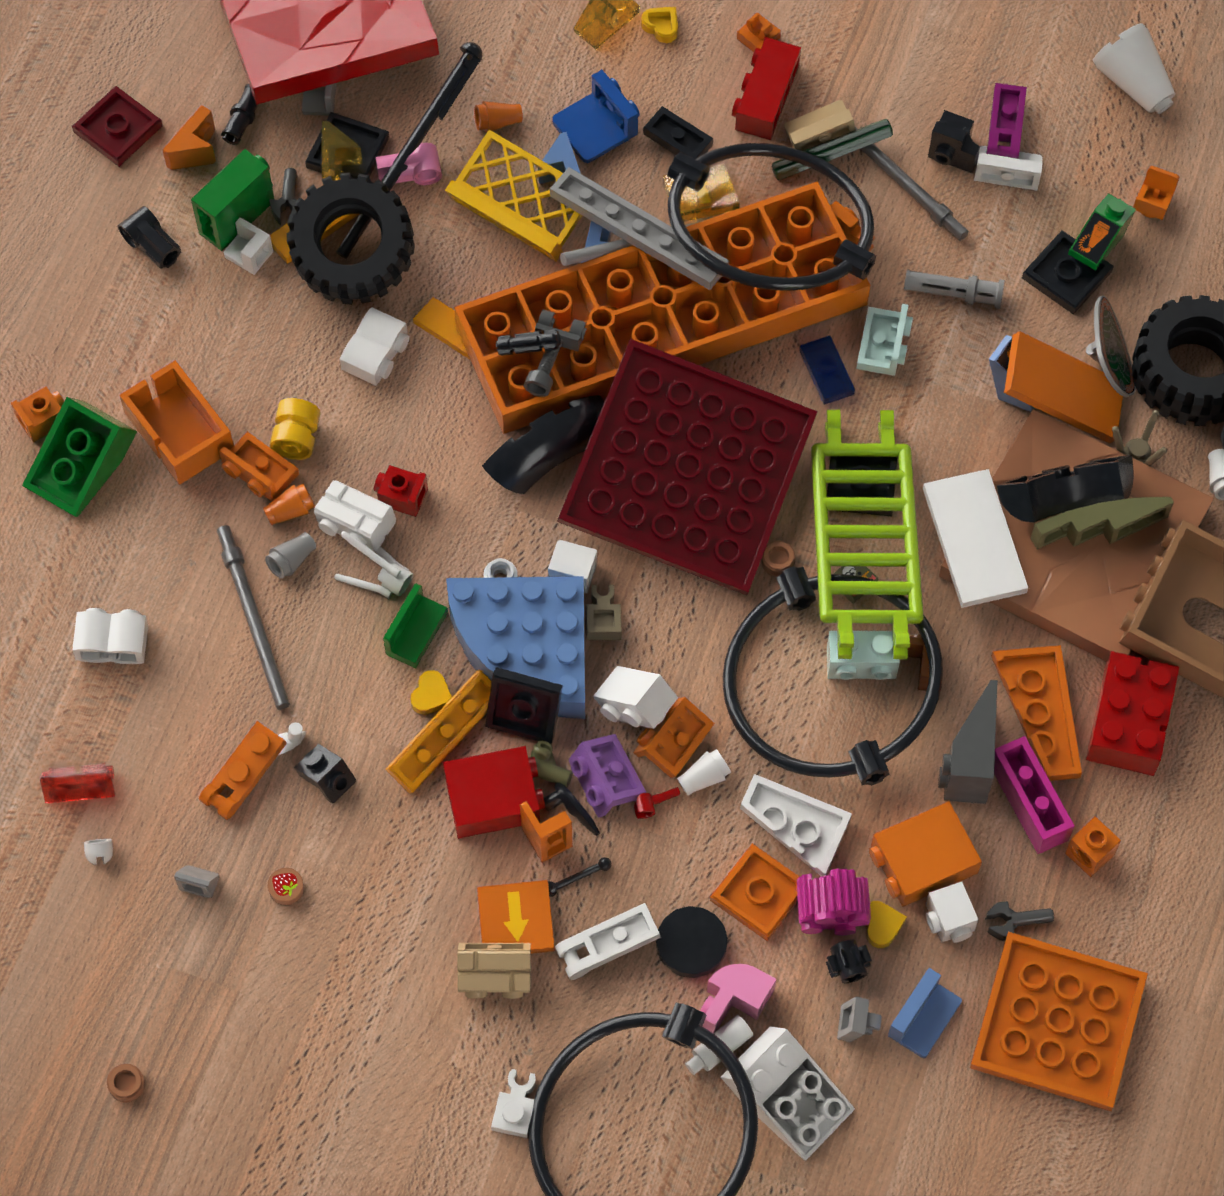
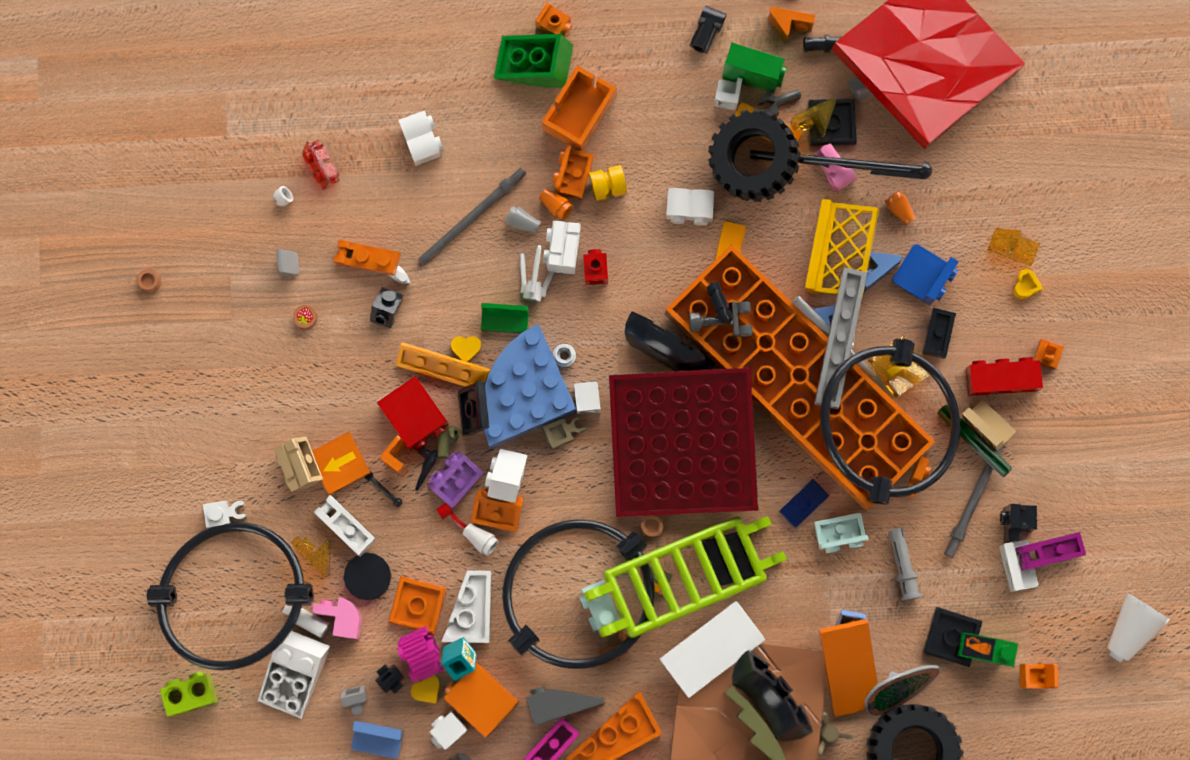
camera: 70 degrees right, 15 degrees up
(640, 995) = (319, 559): none -> clear yellow slope
(860, 852) = (458, 658): none -> teal brick

